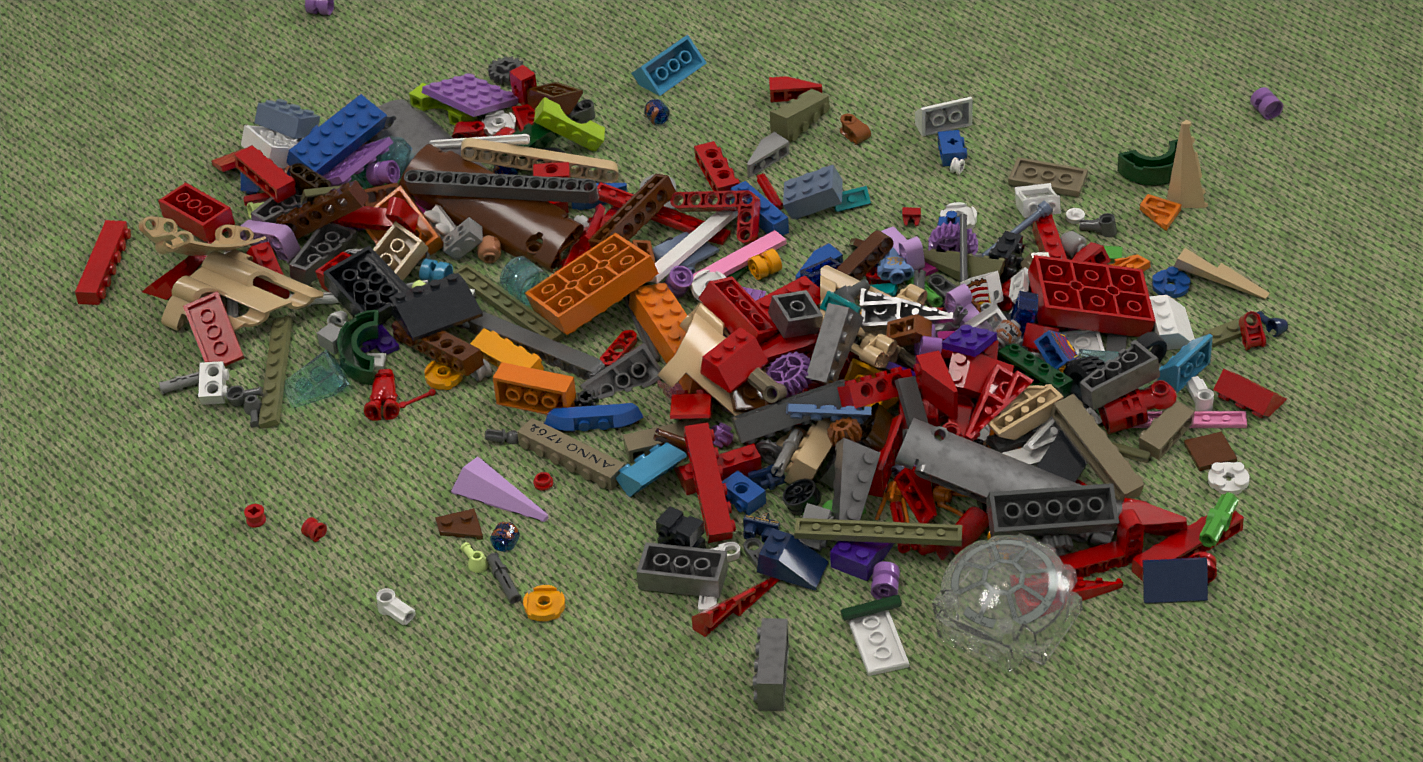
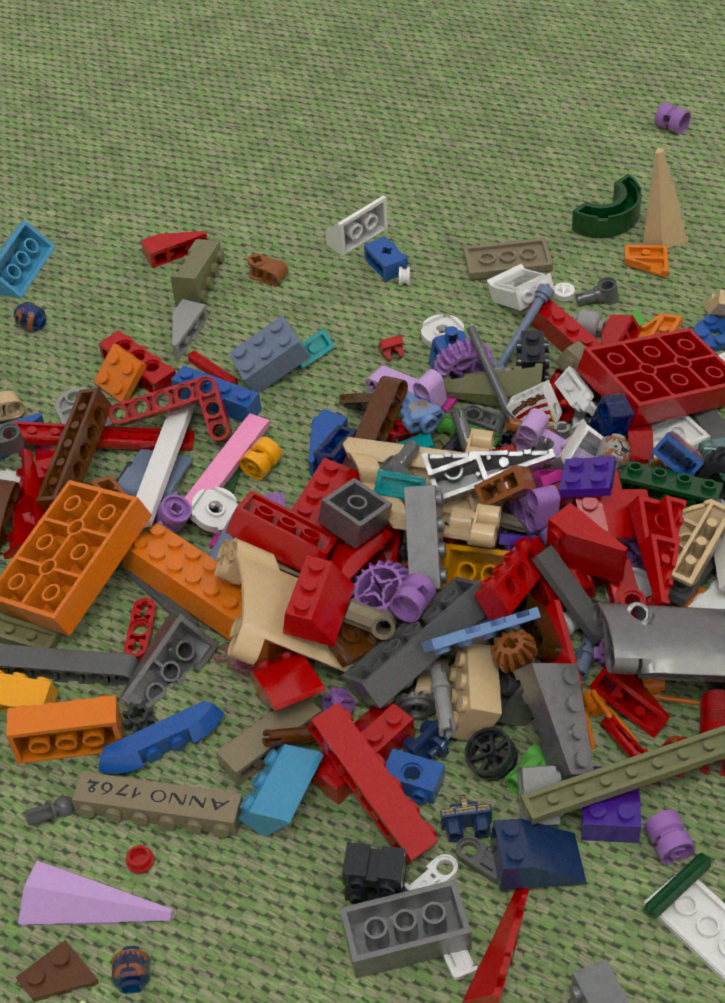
camera: 25 degrees left, 5 degrees up
(698, 172) = (120, 373): none -> orange plate
(801, 380) = (412, 597): none -> medium lavender wheel

